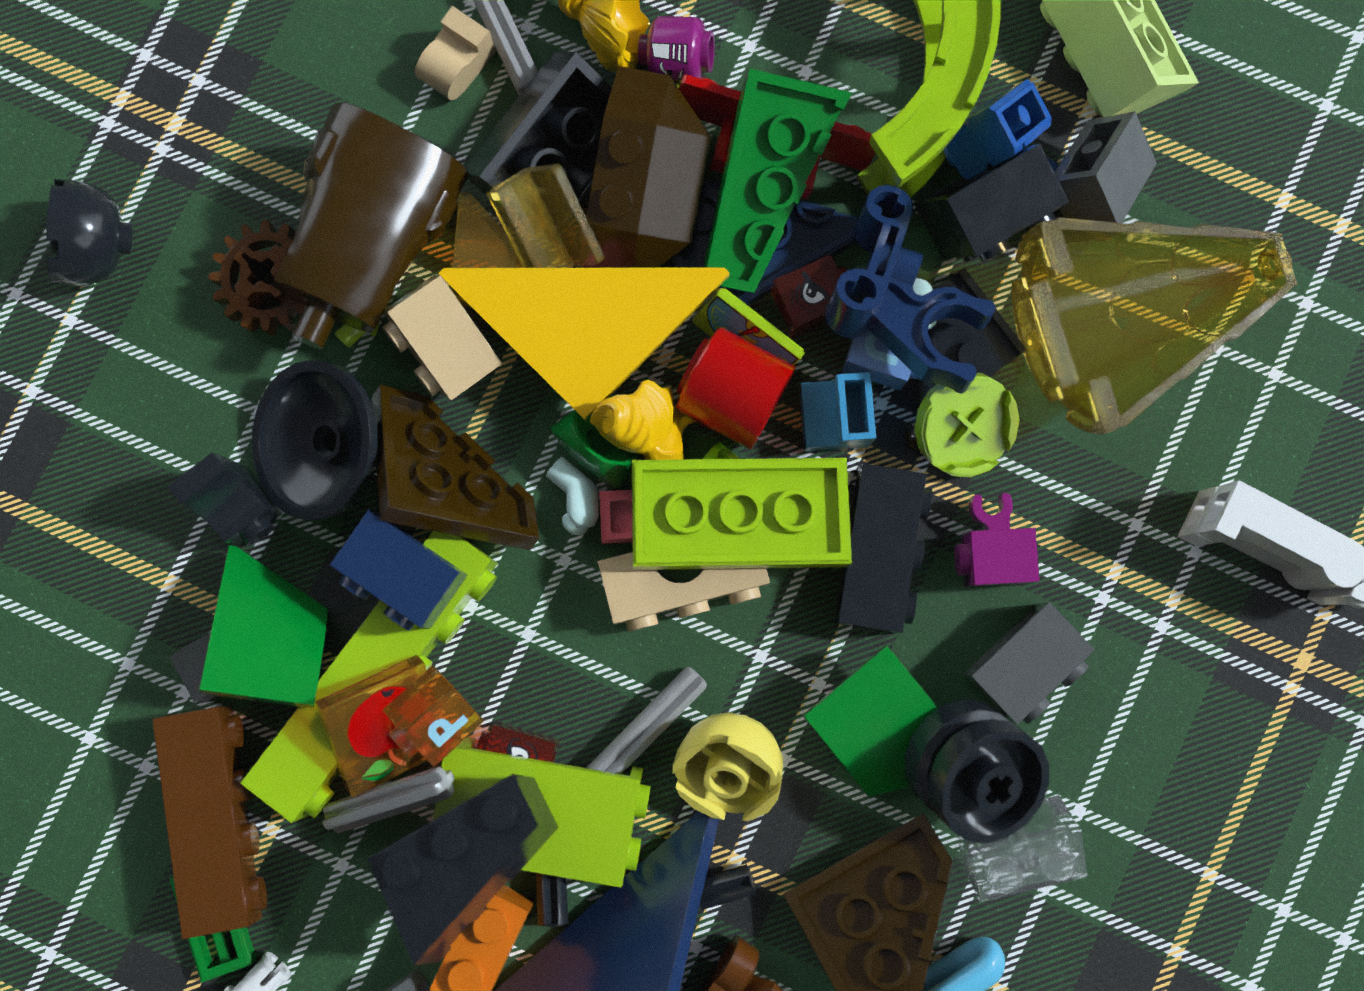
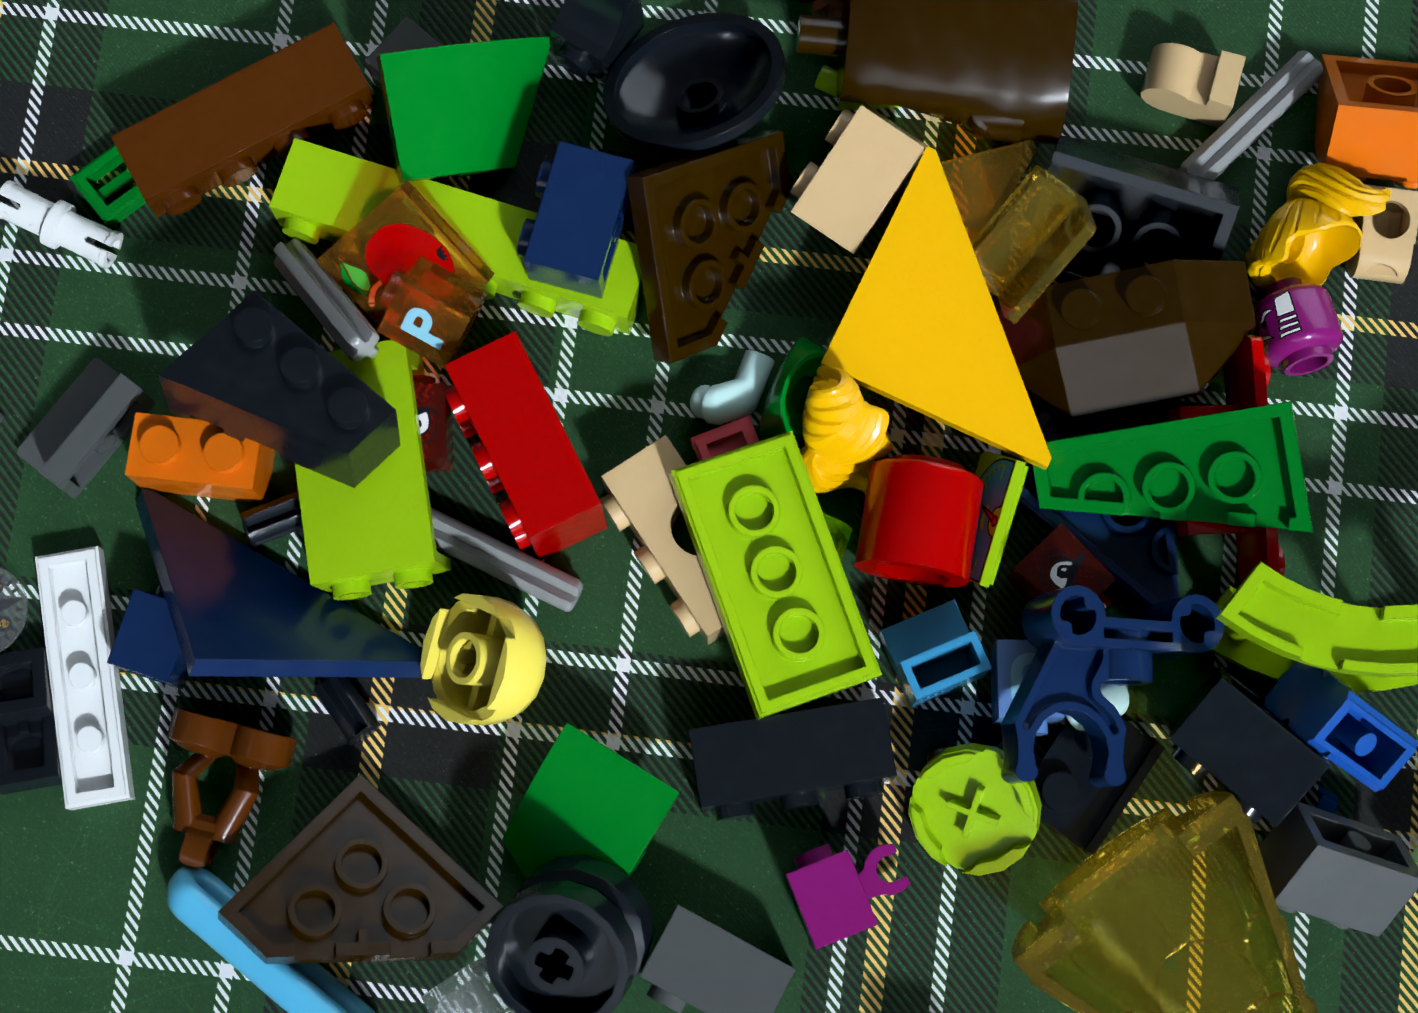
camera: 70 degrees right, 5 degrees down
(567, 679) = (523, 447): none -> red brick

